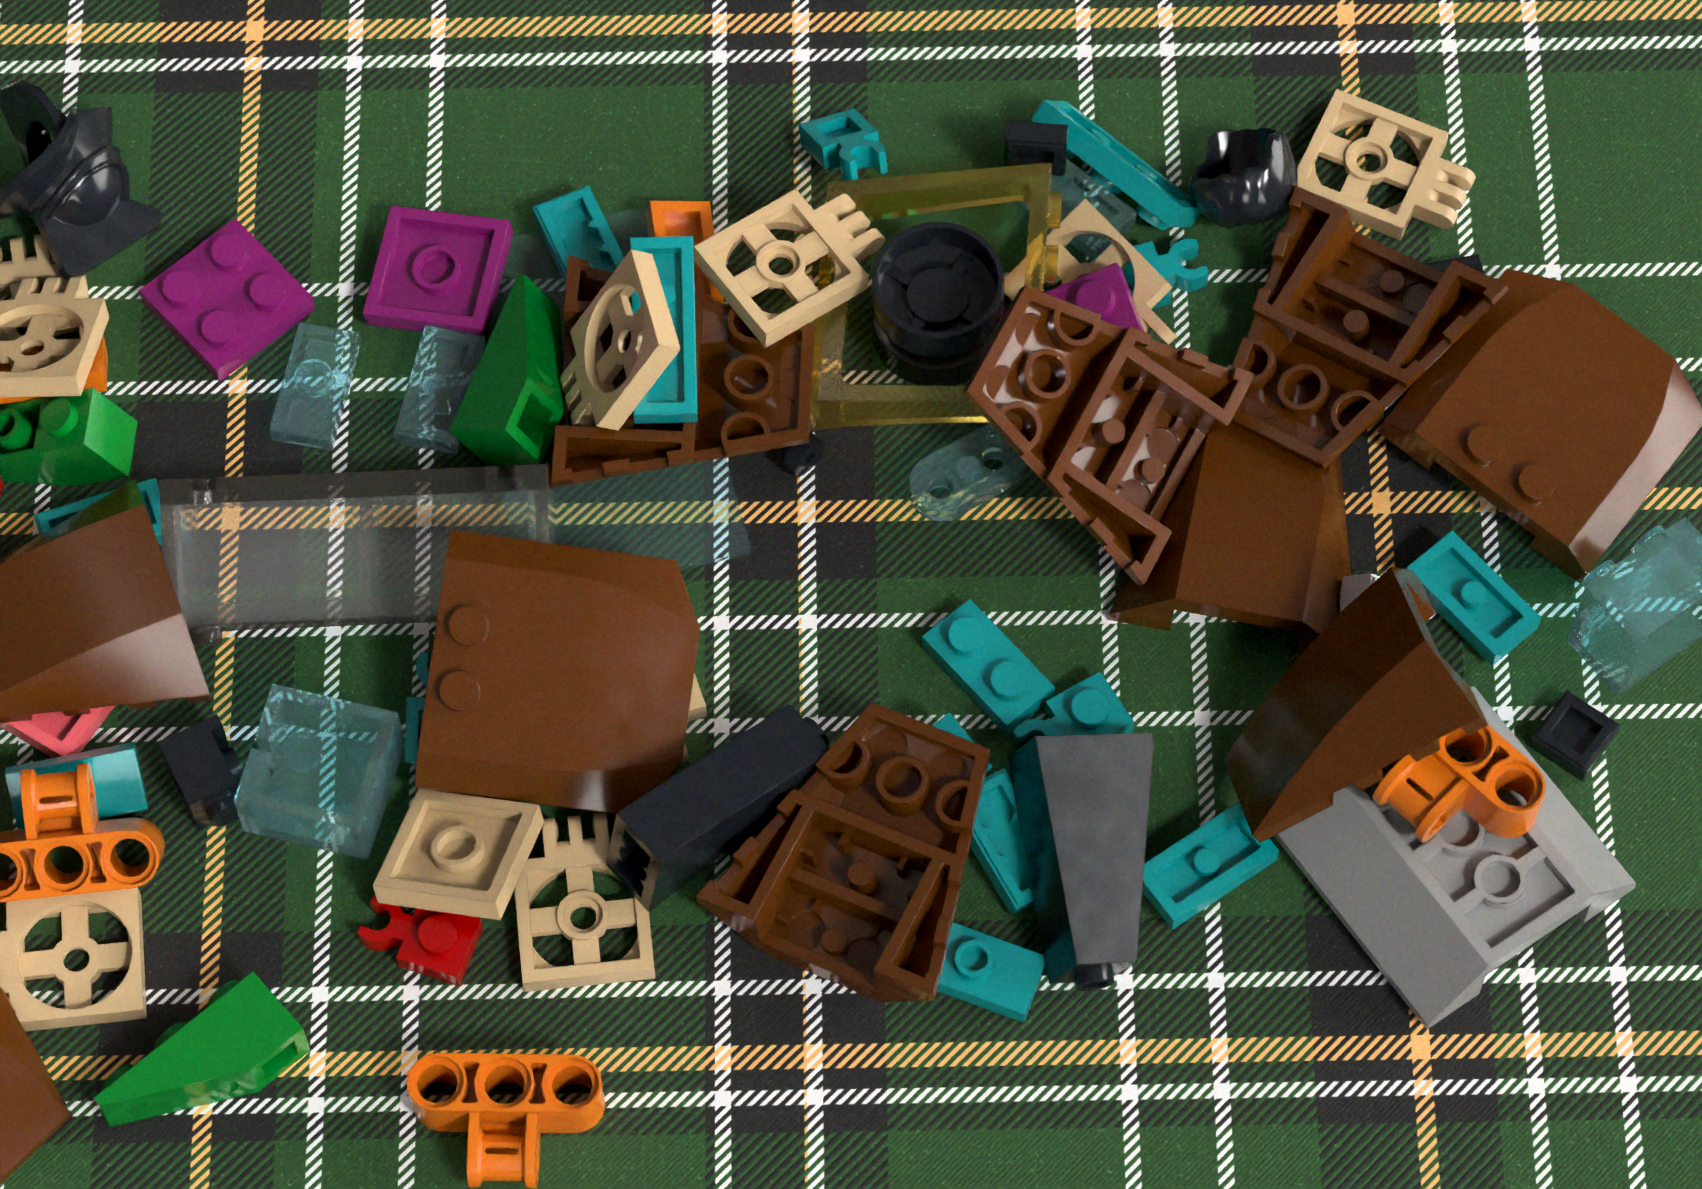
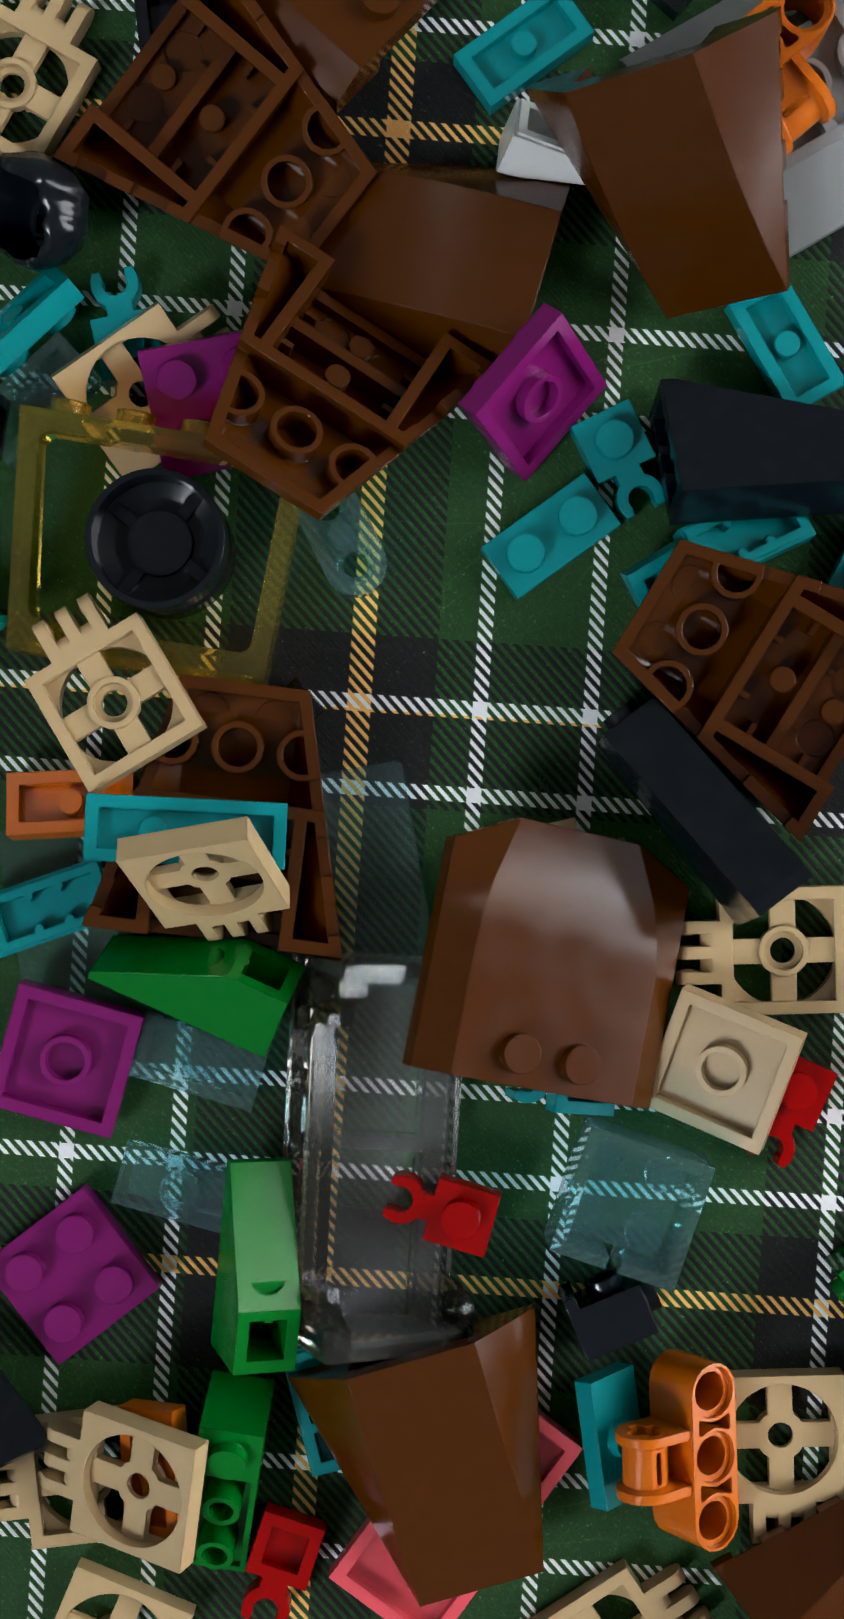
camera: 85 degrees left, 25 degrees up
(245, 442) = (257, 1269): none -> green slope
(304, 620) = (456, 1213): none -> red plate
(1122, 618) = (533, 392): none -> magenta plate

